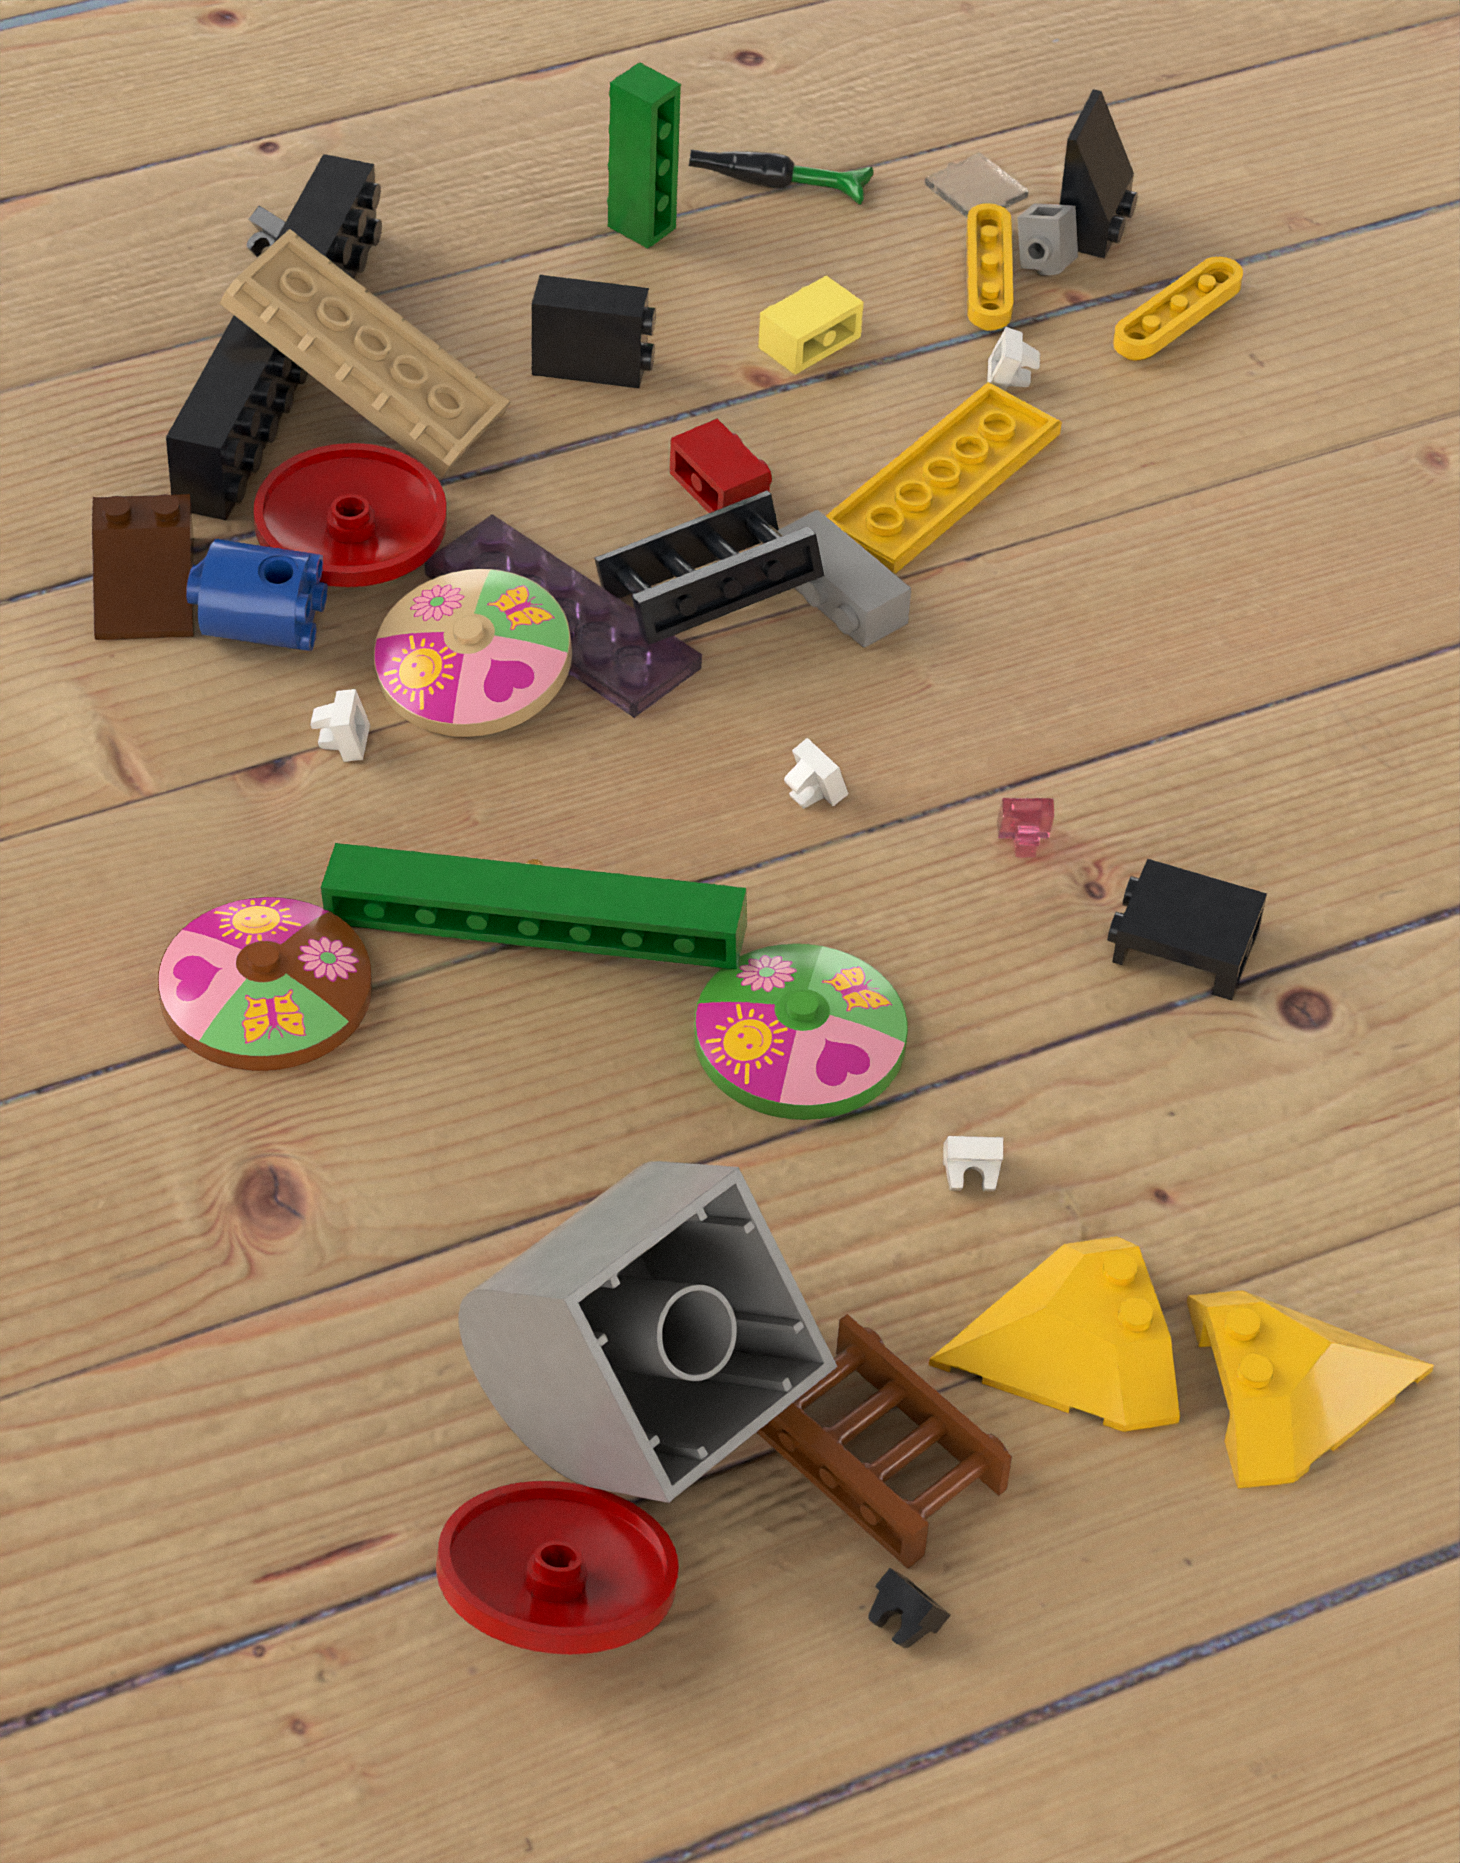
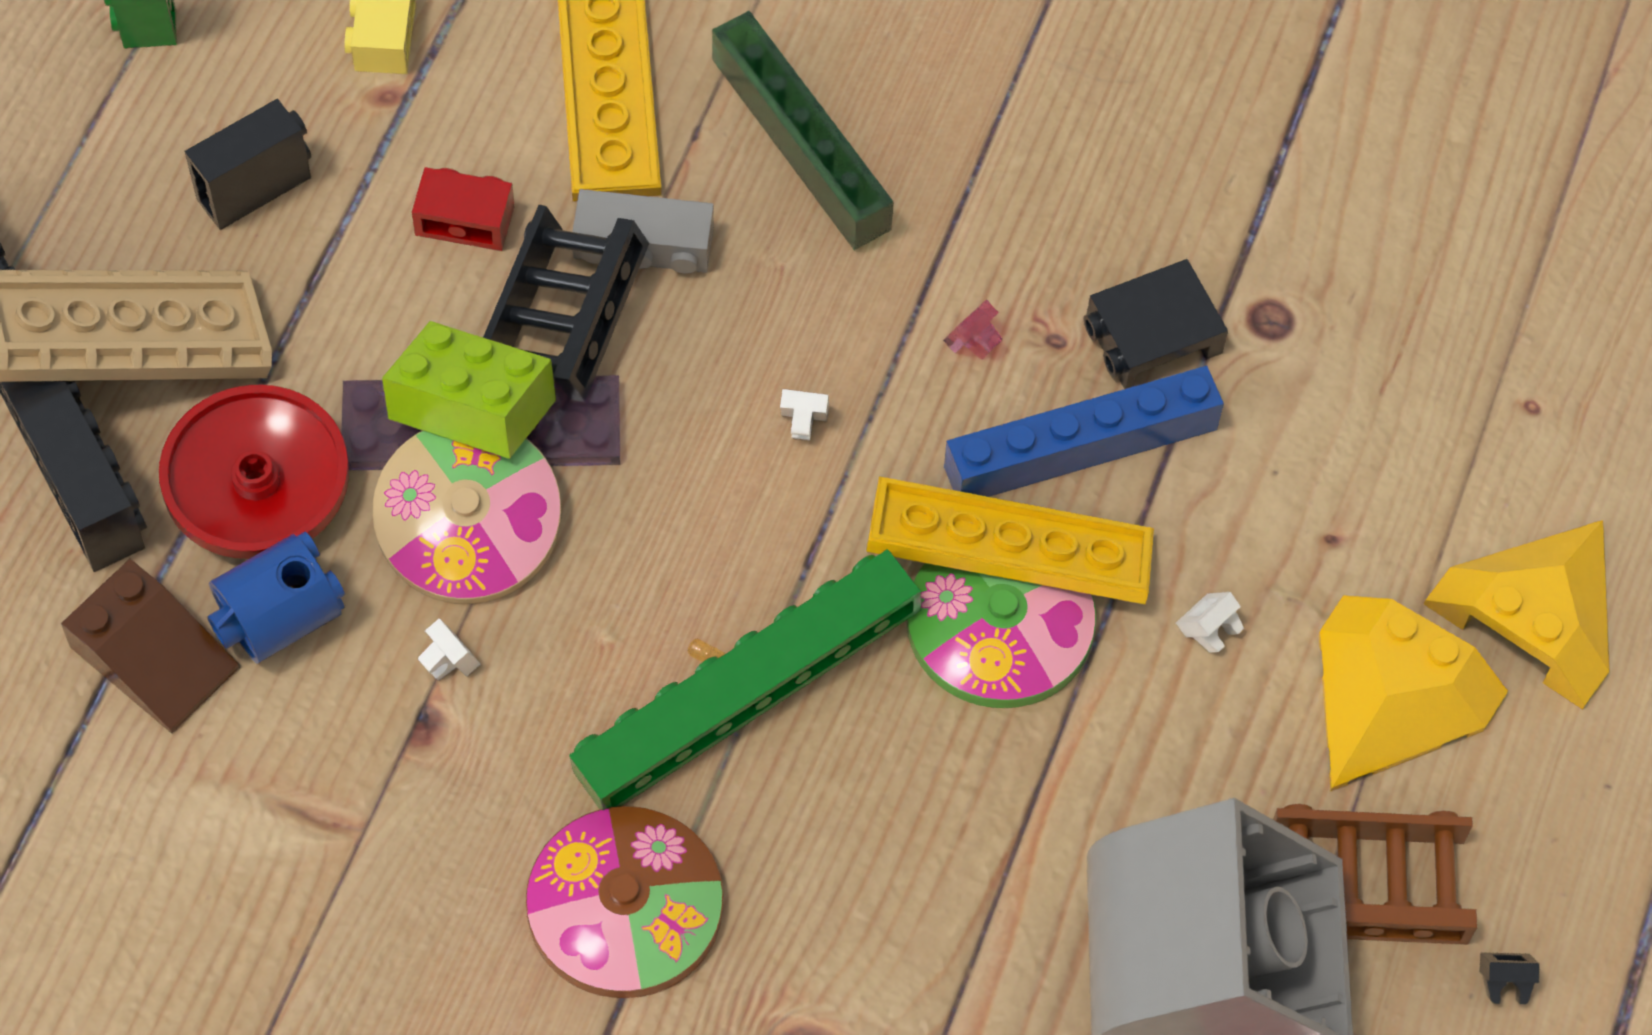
camera: 45 degrees left, 15 degrees up
(559, 560) = (469, 389): none -> lime brick
(870, 976) = (1011, 540): none -> yellow tile
(1026, 954) = (1084, 434): none -> blue brick
(1048, 597) = (802, 130): none -> clear green brick

